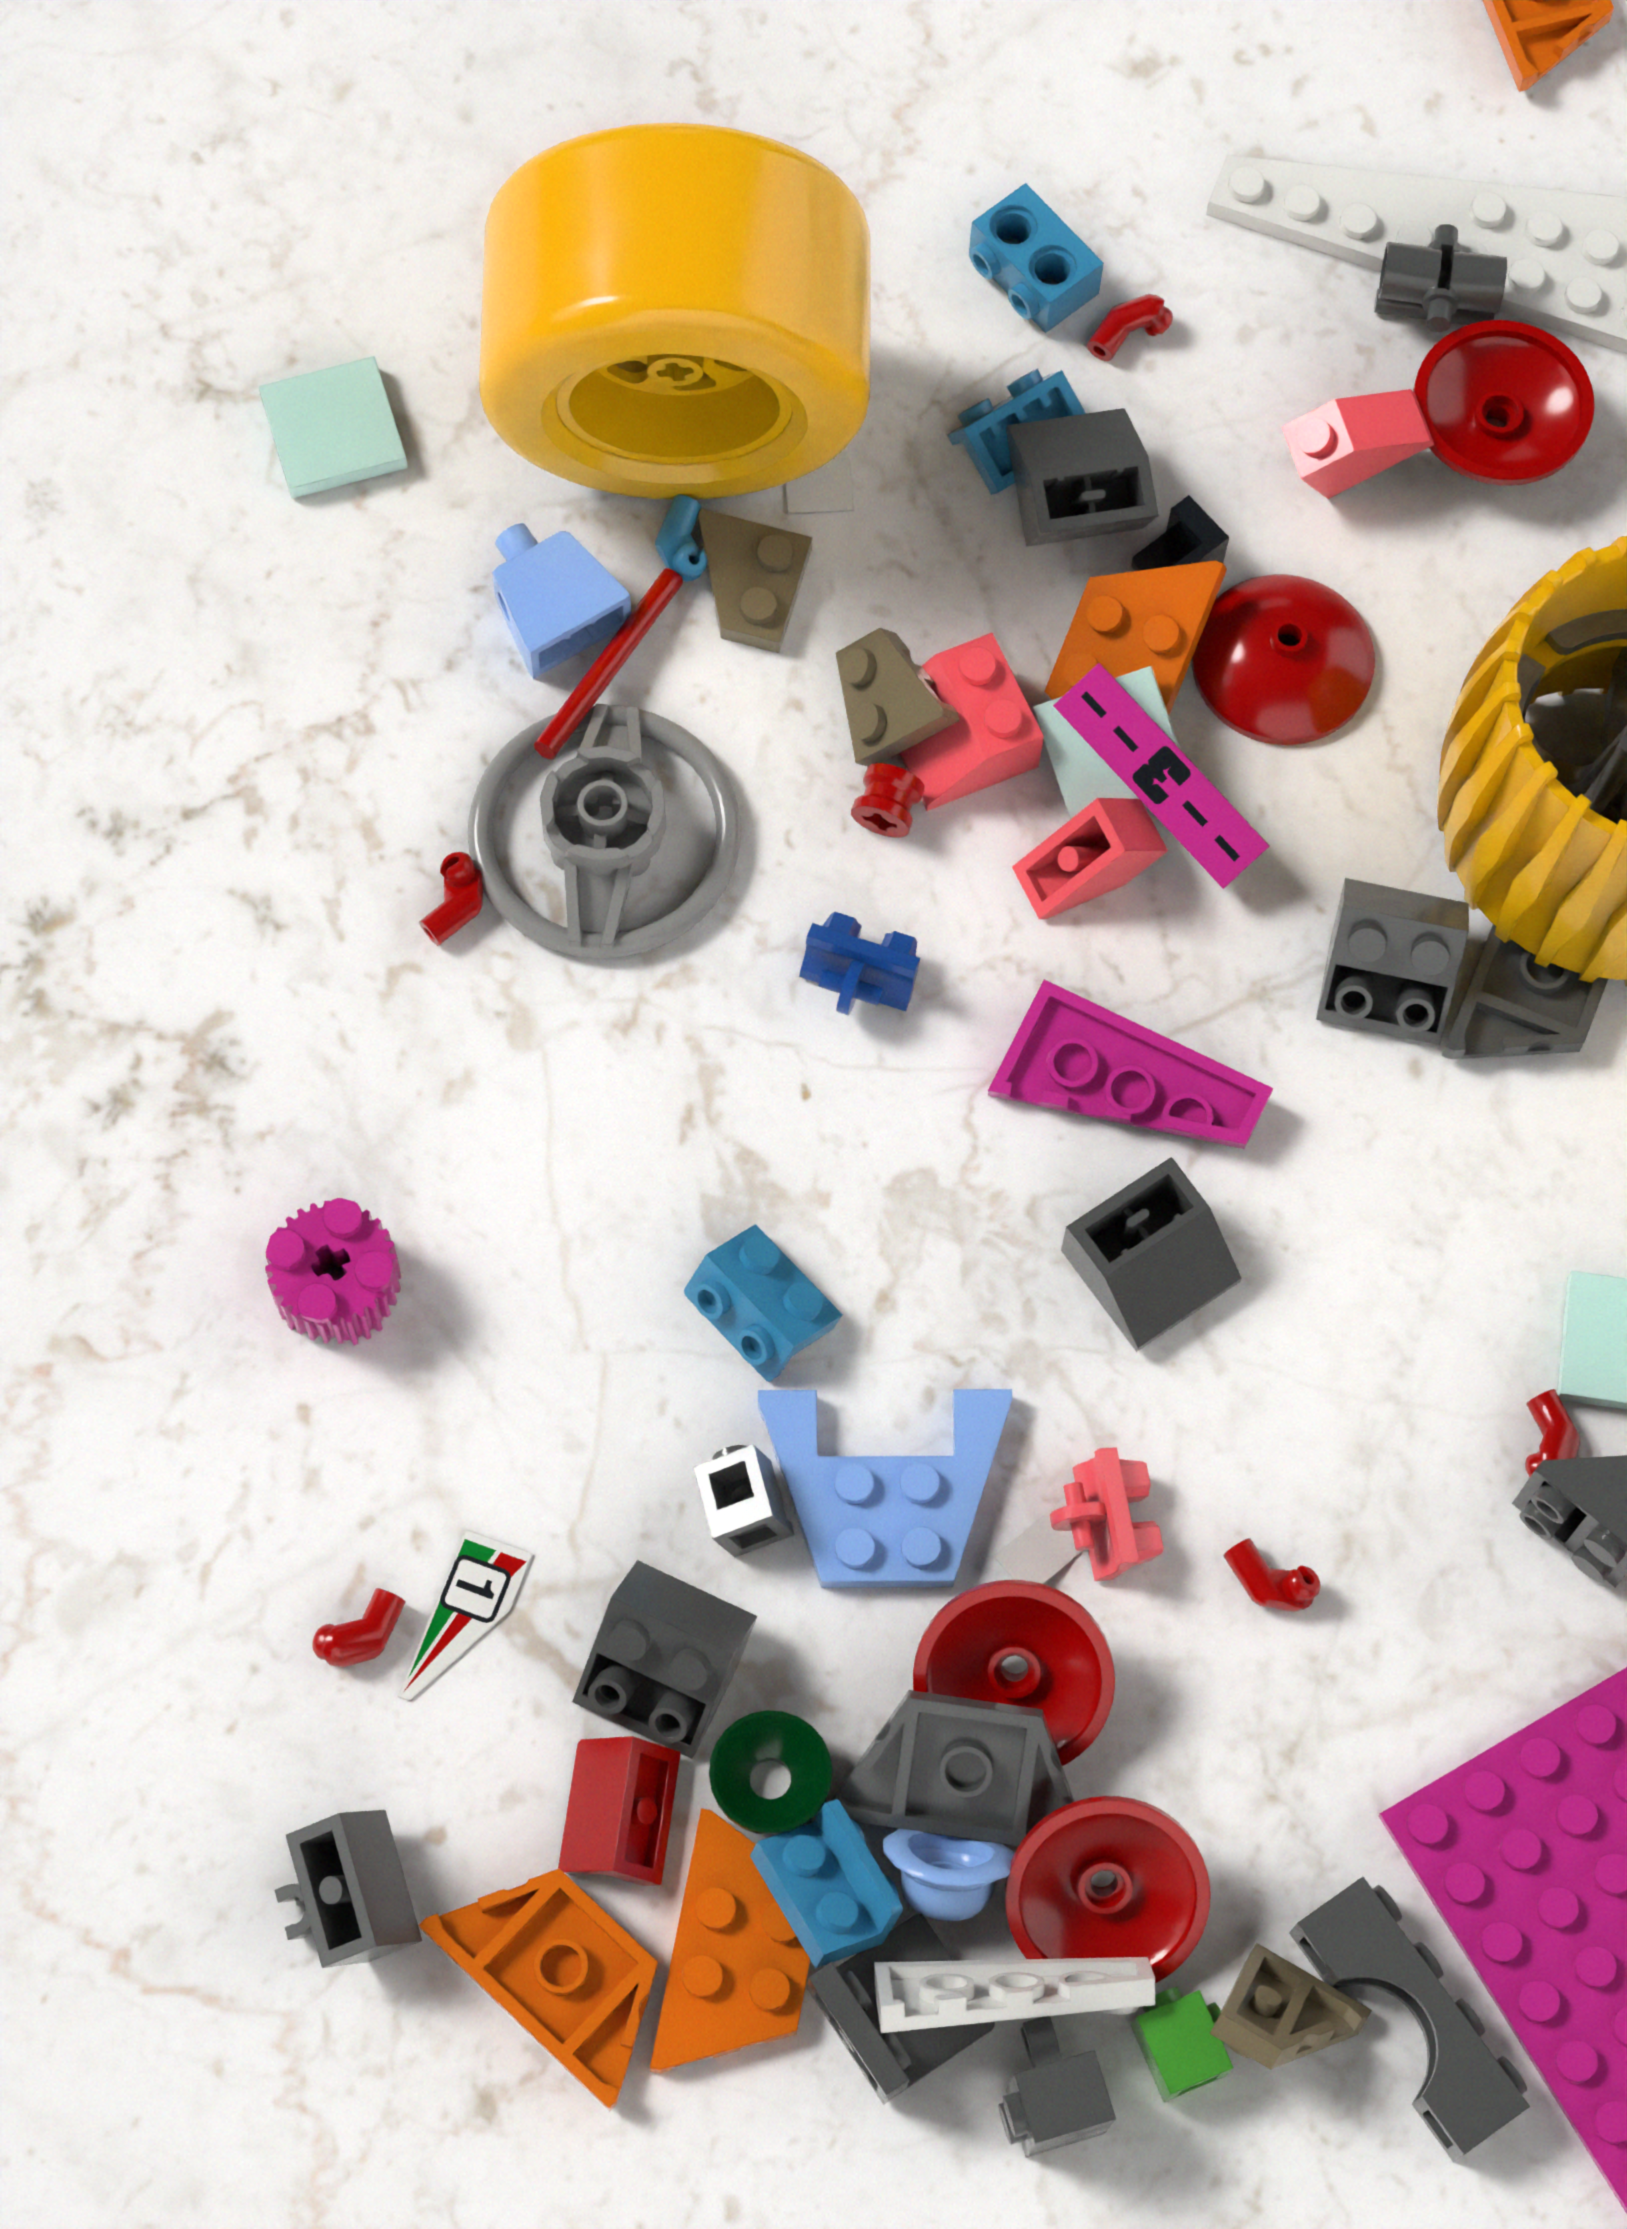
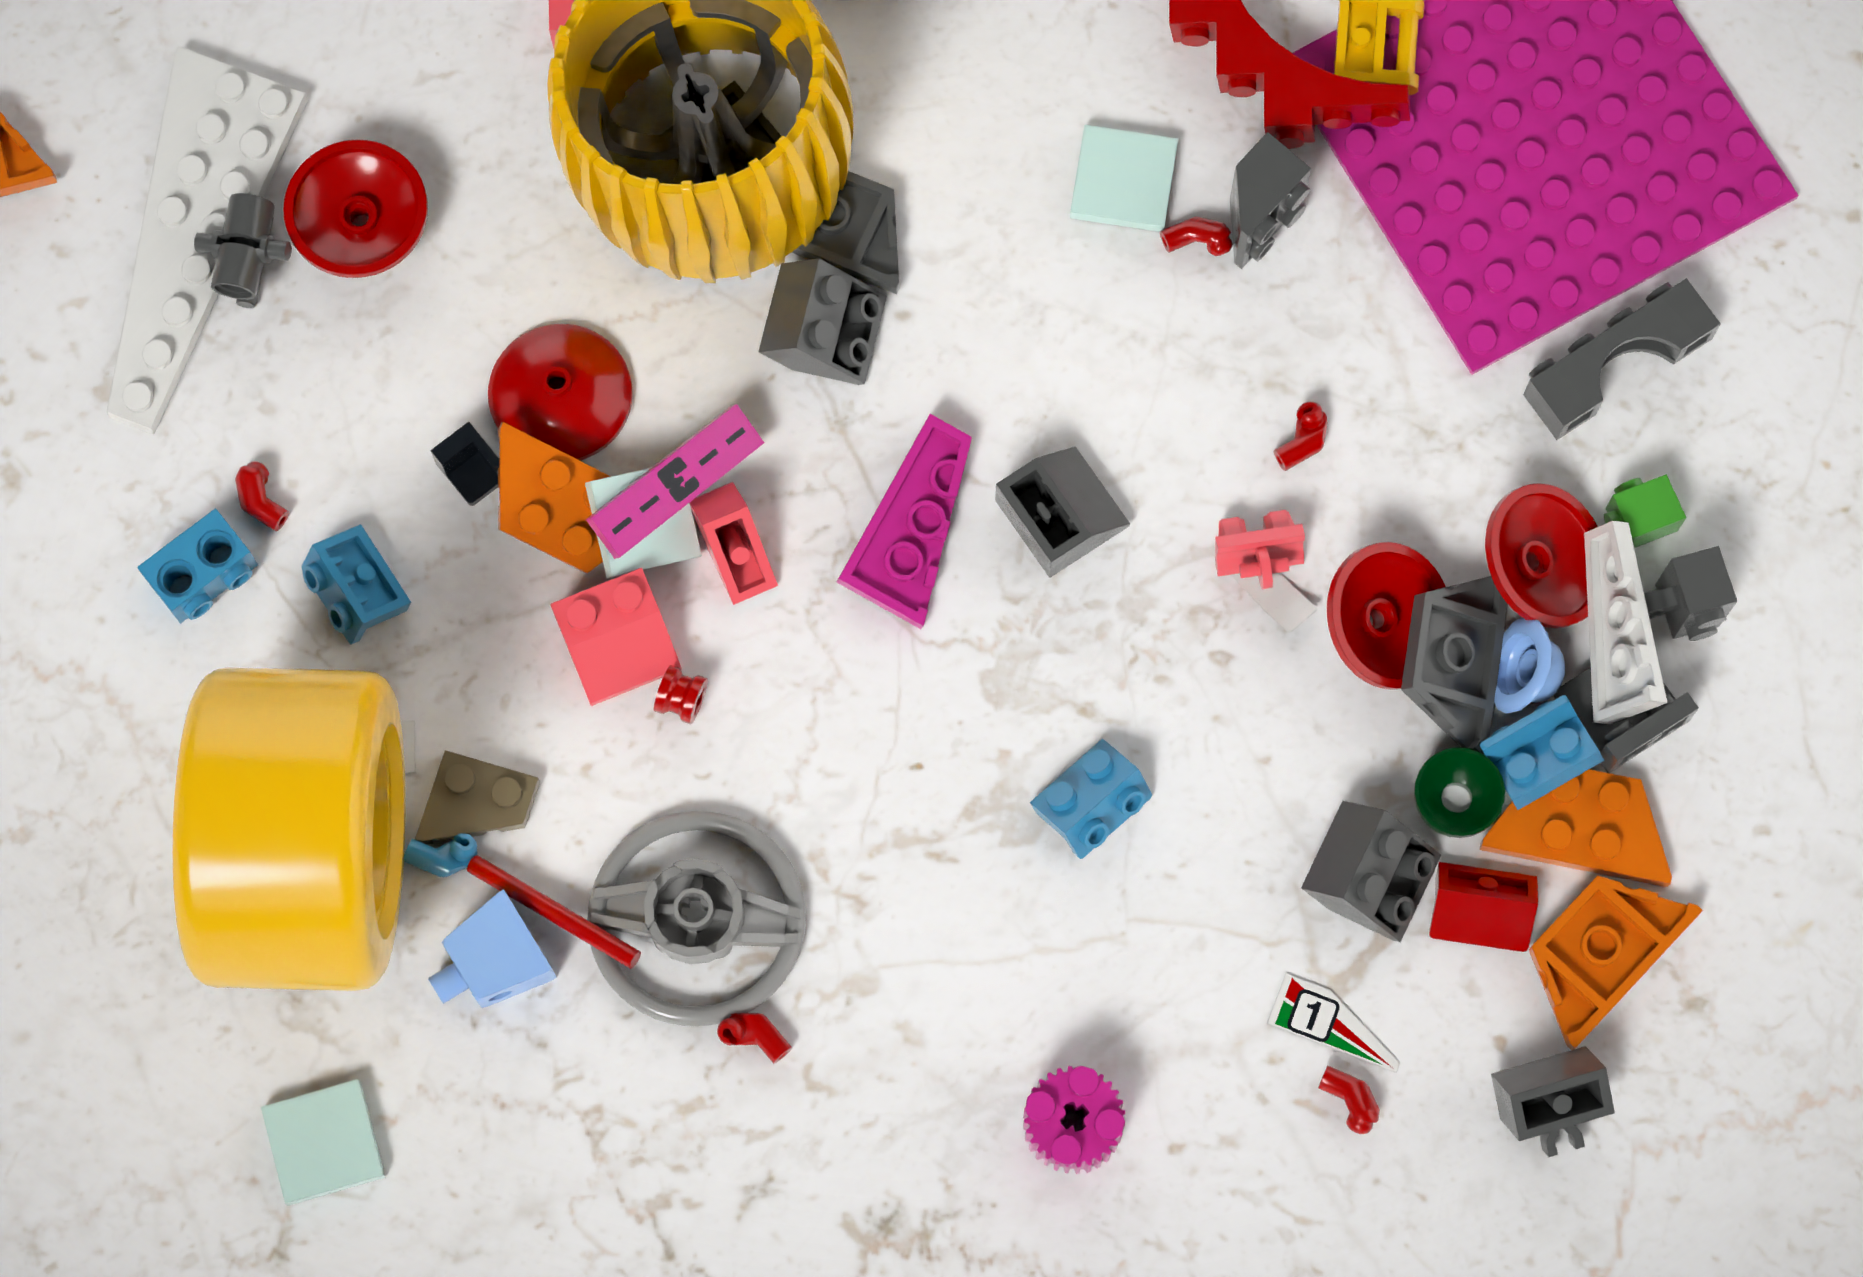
camera: 85 degrees left, 5 degrees up
(737, 1523) = (1266, 822): dark grey brick -> none
(859, 967) = (825, 721): blue hips -> none
(885, 1515) = (1257, 710): light blue wing -> none
(888, 698) = (594, 690): dark tan wing -> none
(1081, 477) = (407, 533): dark grey slope -> none
(1284, 2012) = (1621, 442): dark tan wing -> none
(1356, 439) = (383, 319): coral slope -> none

